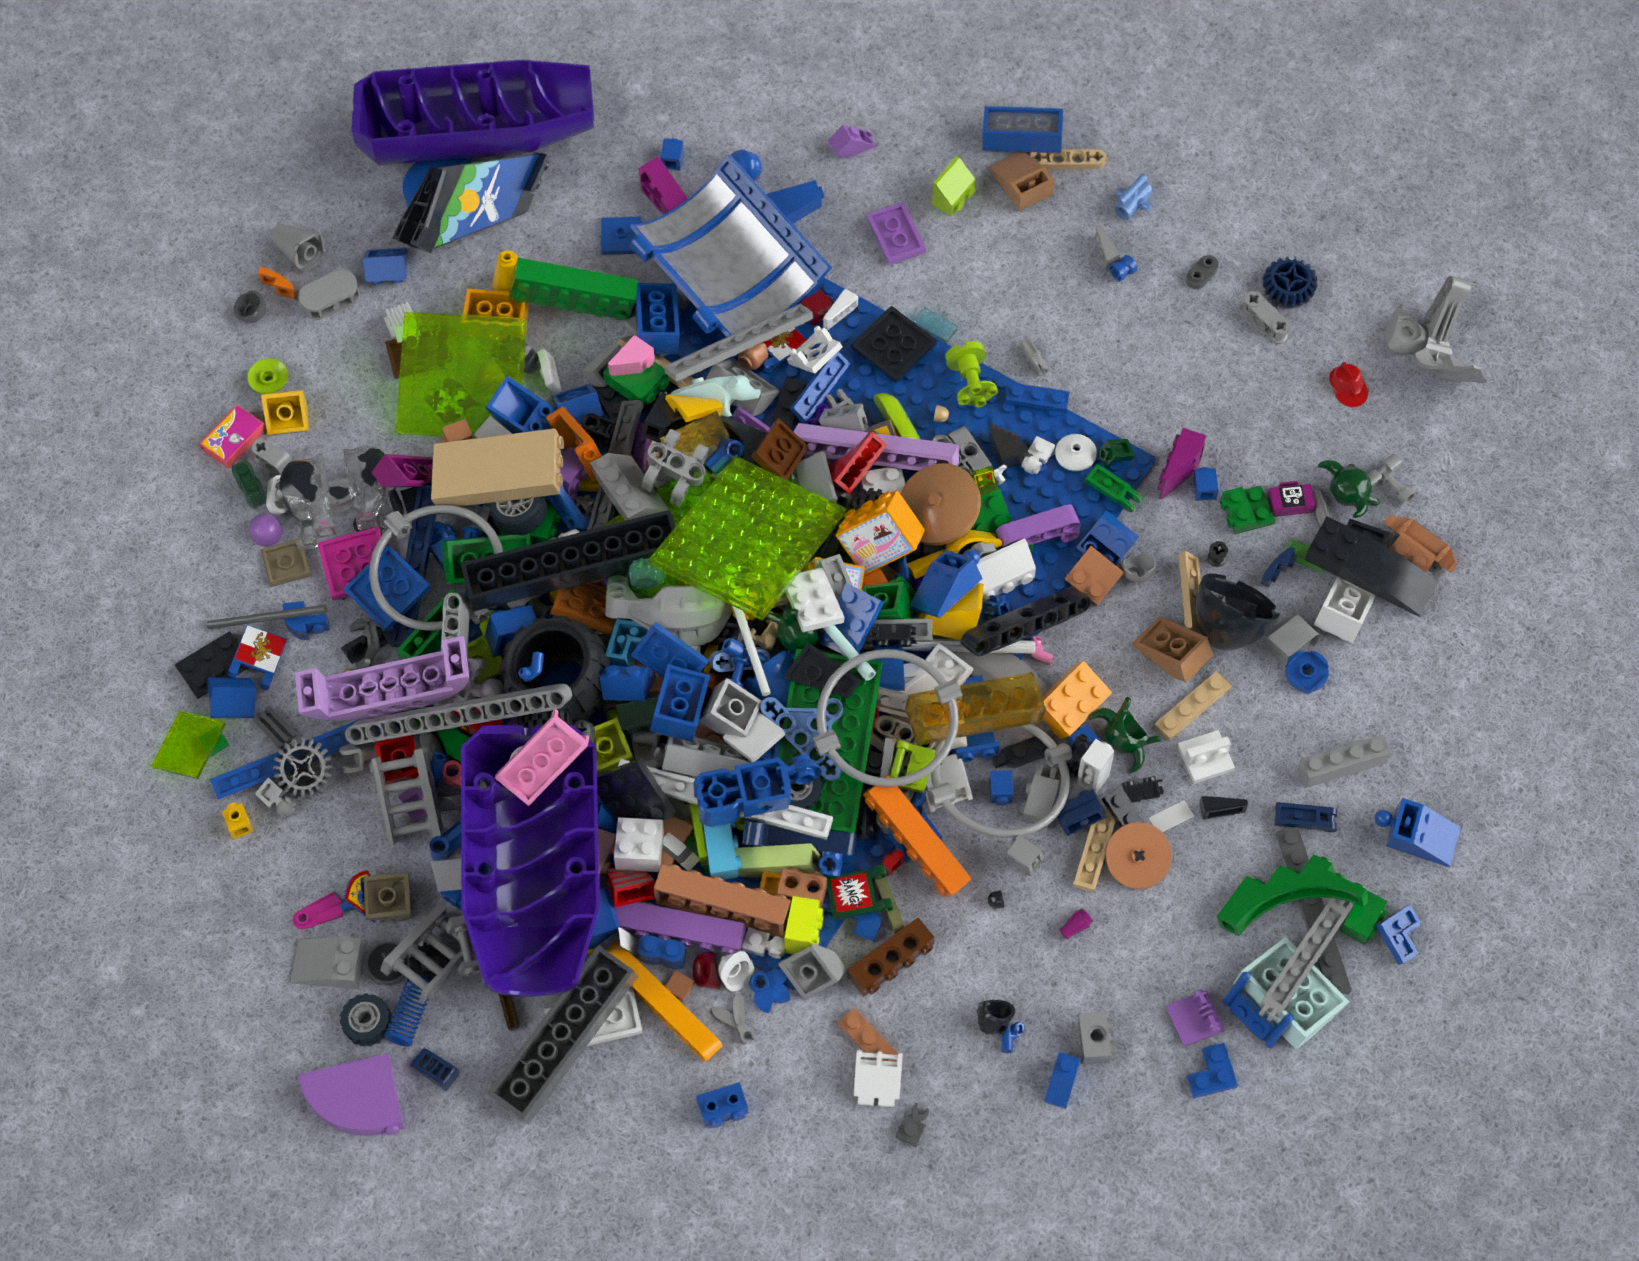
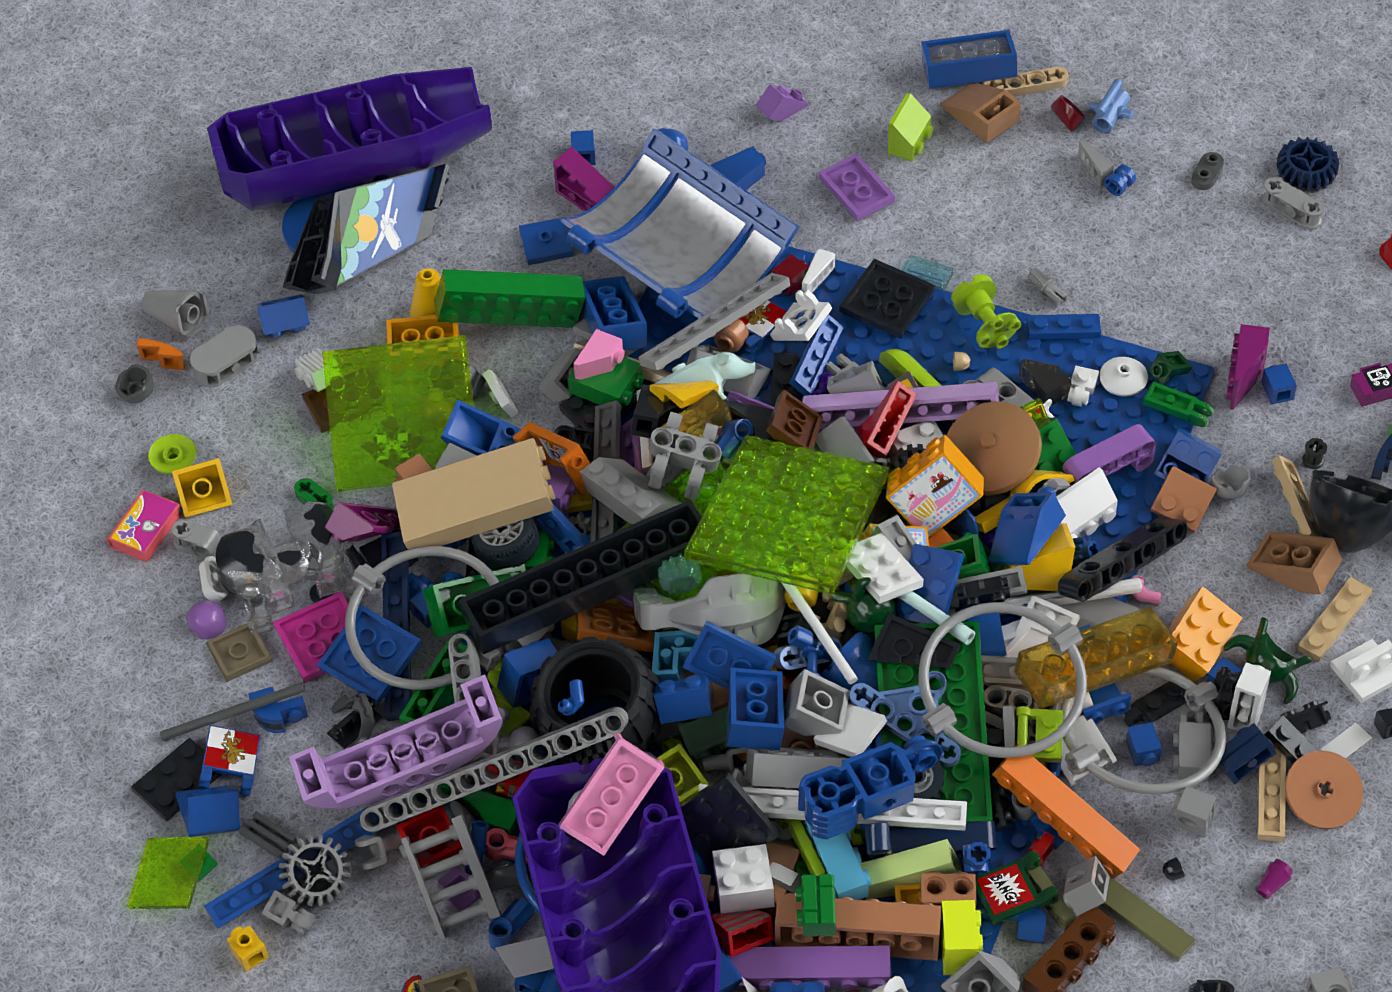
camera: 10 degrees left, 10 degrees down
(249, 484) = (177, 572): clear green brick -> none
(379, 433) = (316, 491): none -> green beam
(579, 402) = (546, 415): blue slope -> none
(689, 882) = (818, 905): none -> green brick
(758, 942) = (910, 968): white plate -> none
(918, 902) = (1086, 886): none -> light grey brick
(961, 936) = (1147, 921): none -> olive tile
(1096, 195) = (1067, 112): none -> dark red piece
(1246, 509) = (1331, 402): green plate -> none

